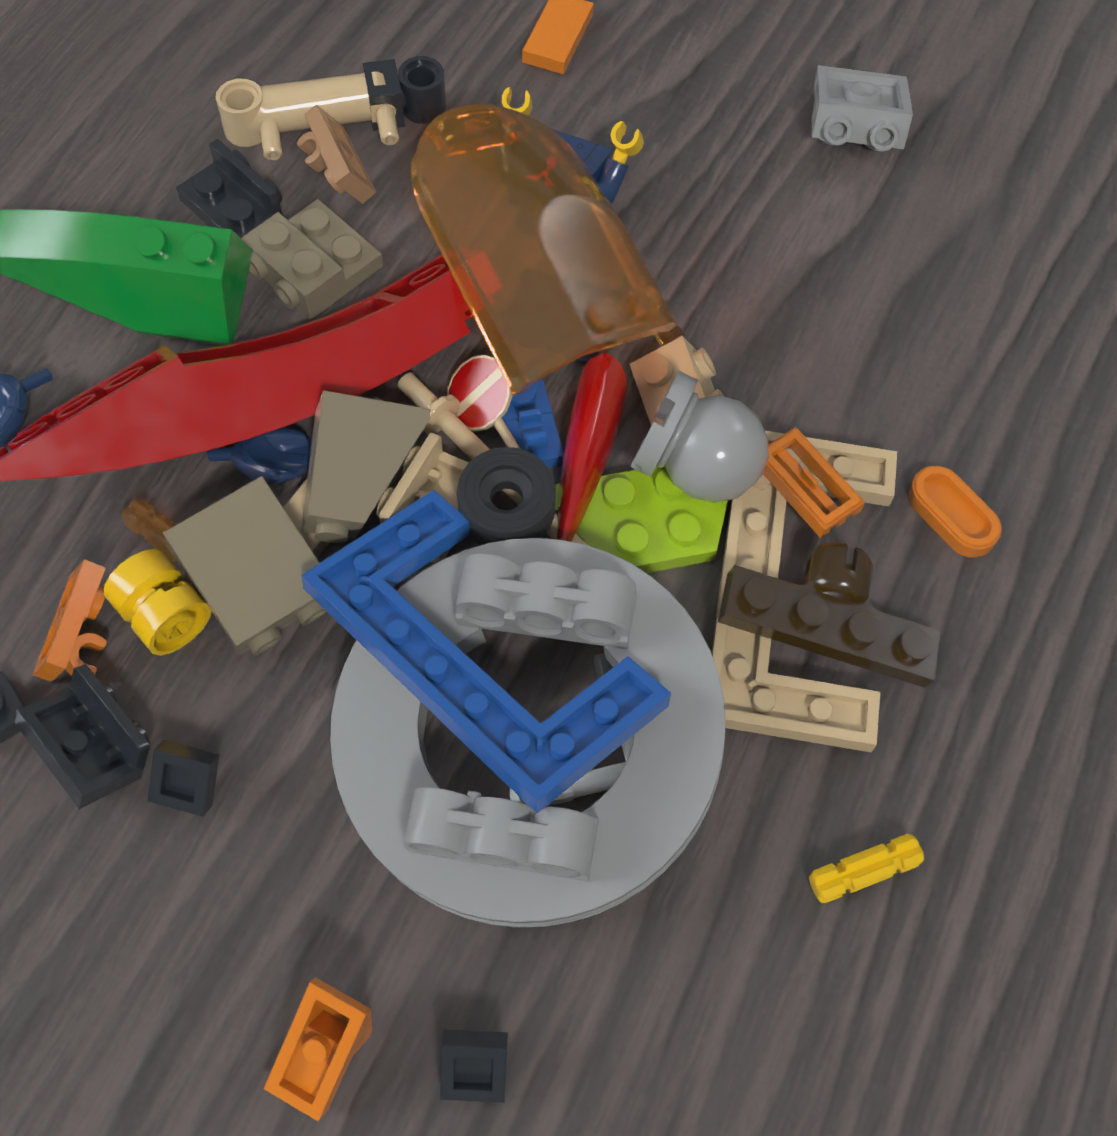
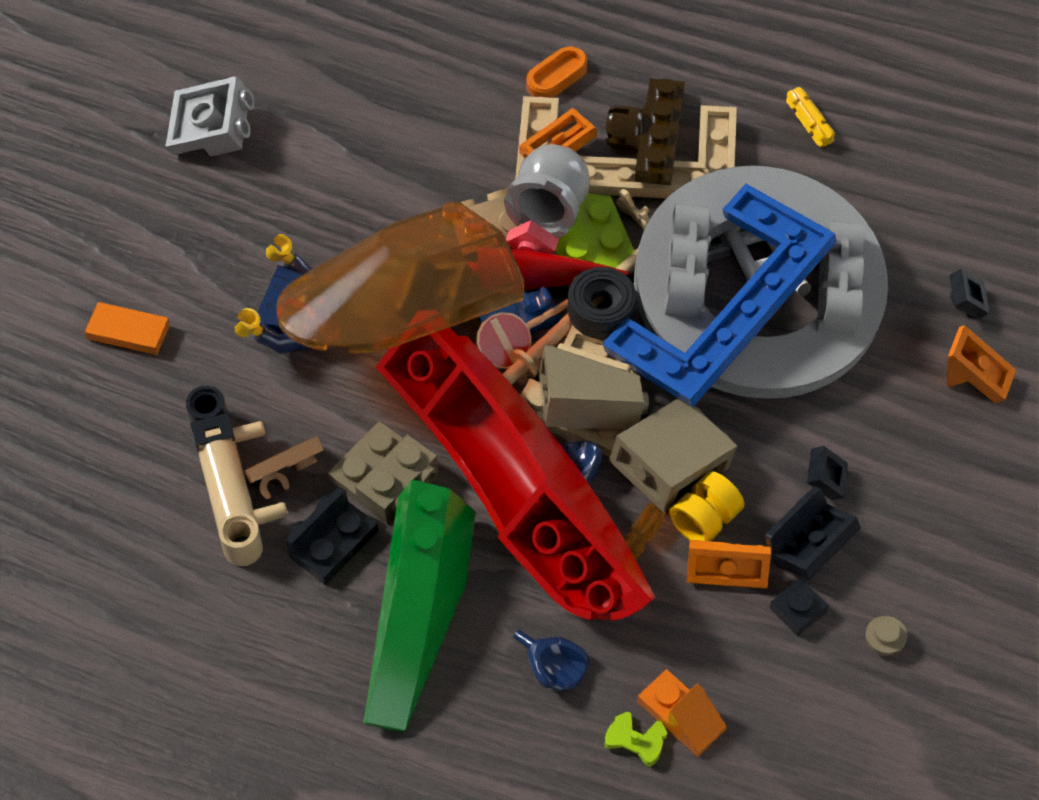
camera: 90 degrees left, 5 degrees down
(629, 431) = (532, 238): none -> coral plate
(695, 573) = (627, 206): none -> tan piece

